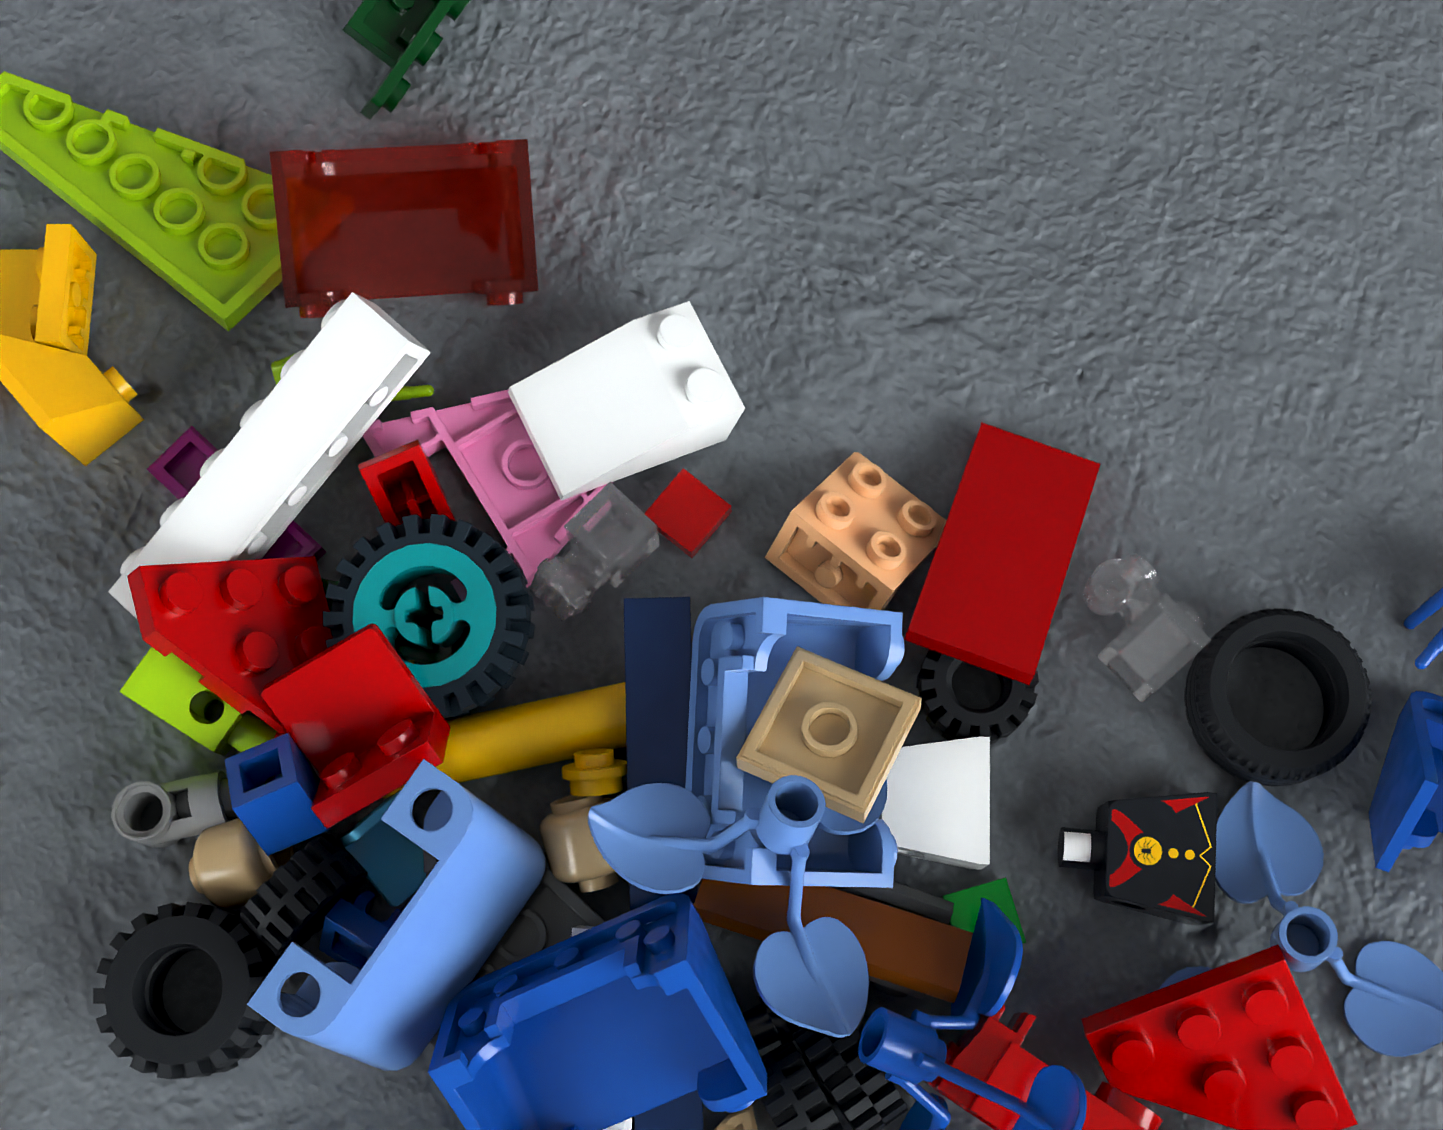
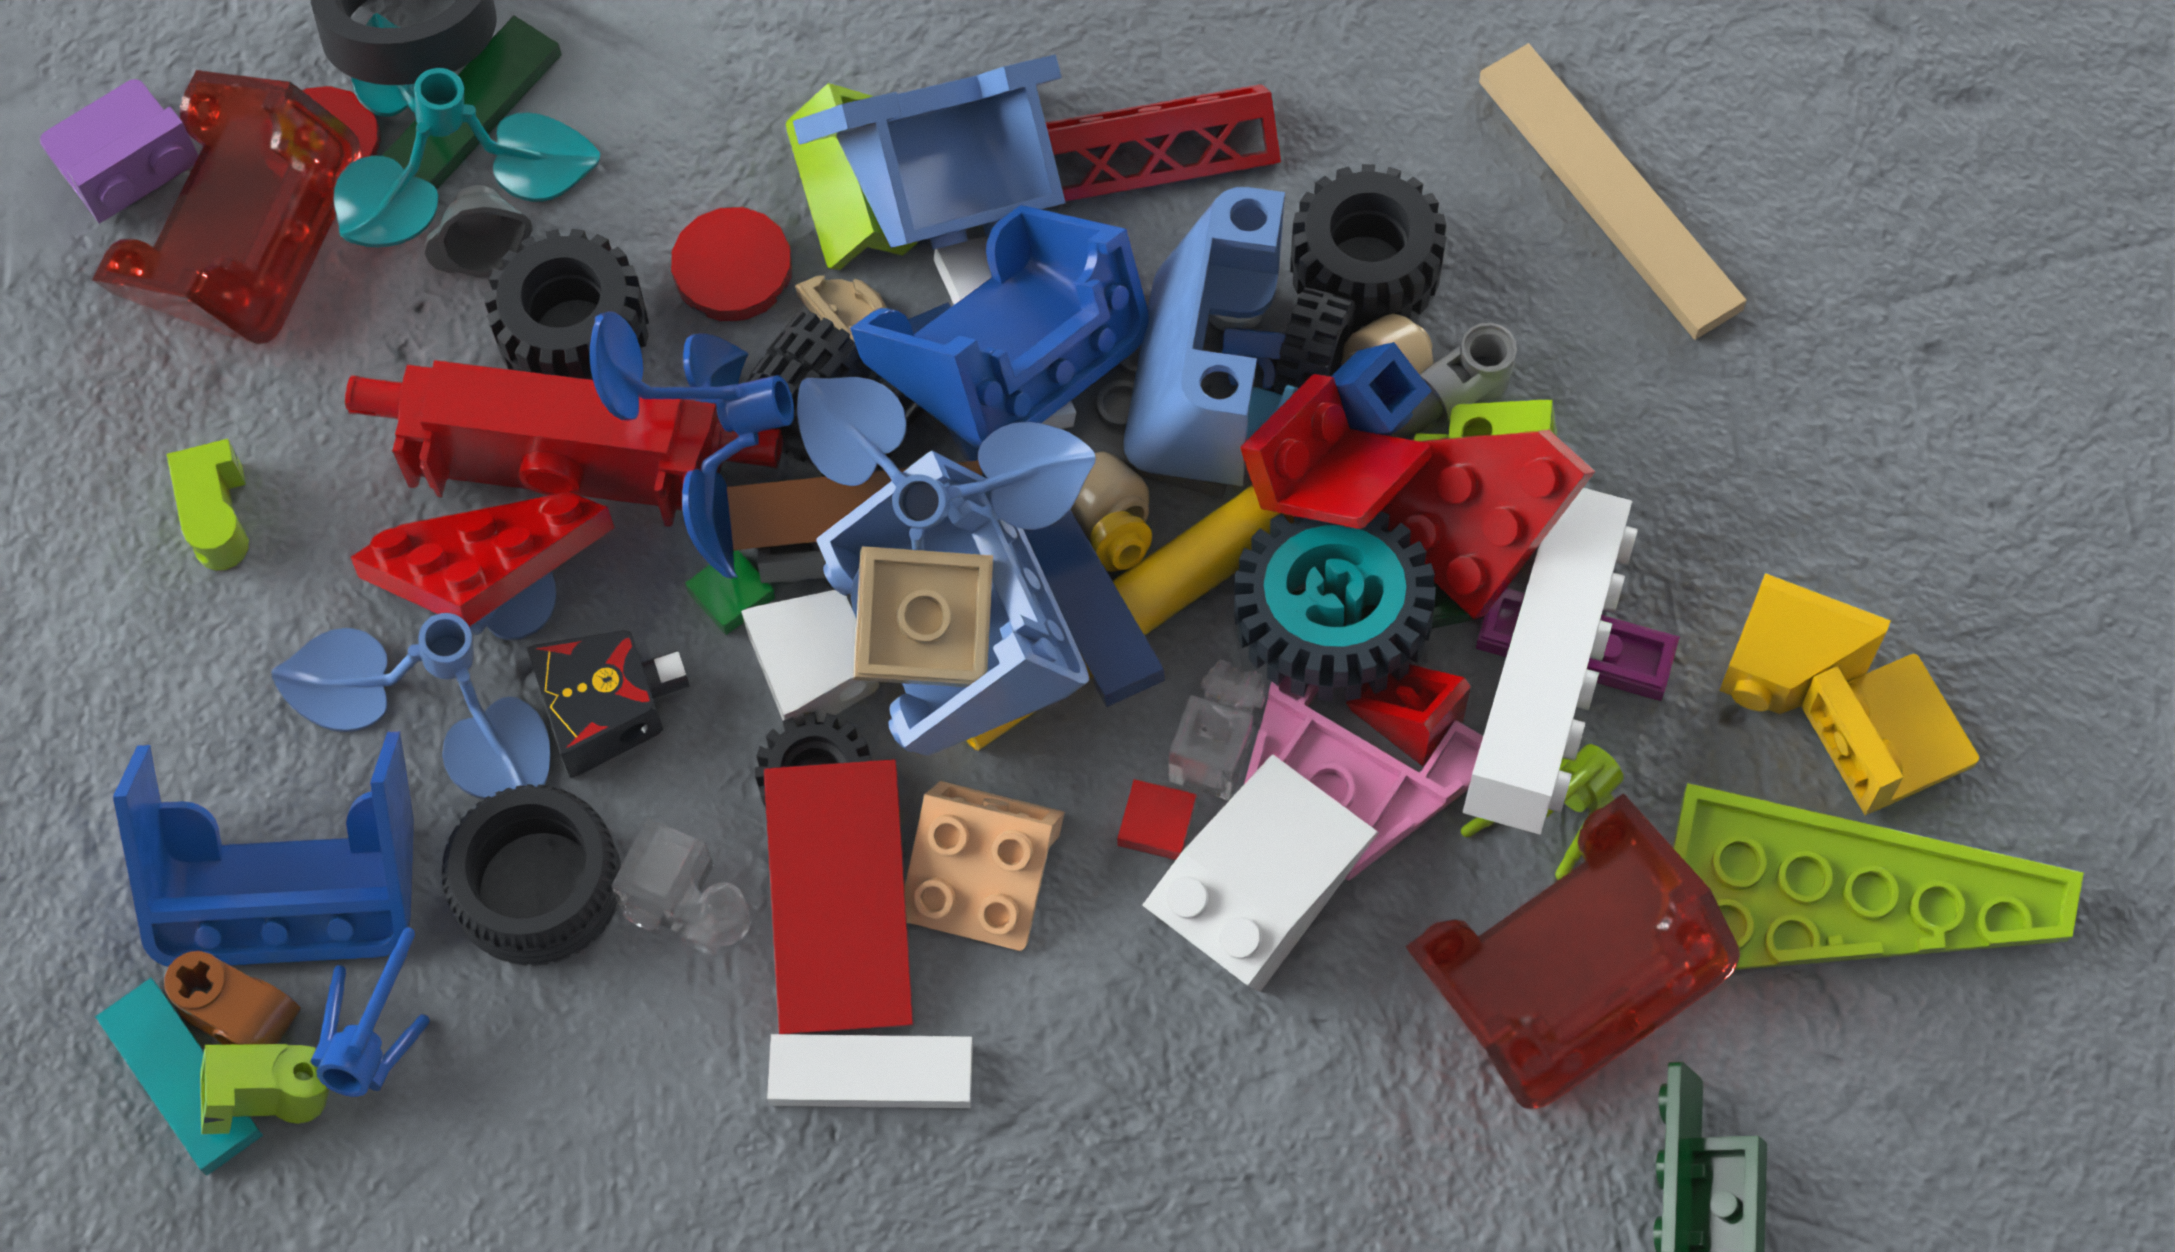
camera: 155 degrees right, 10 degrees down
(1031, 403) = (870, 1071): none -> white tile

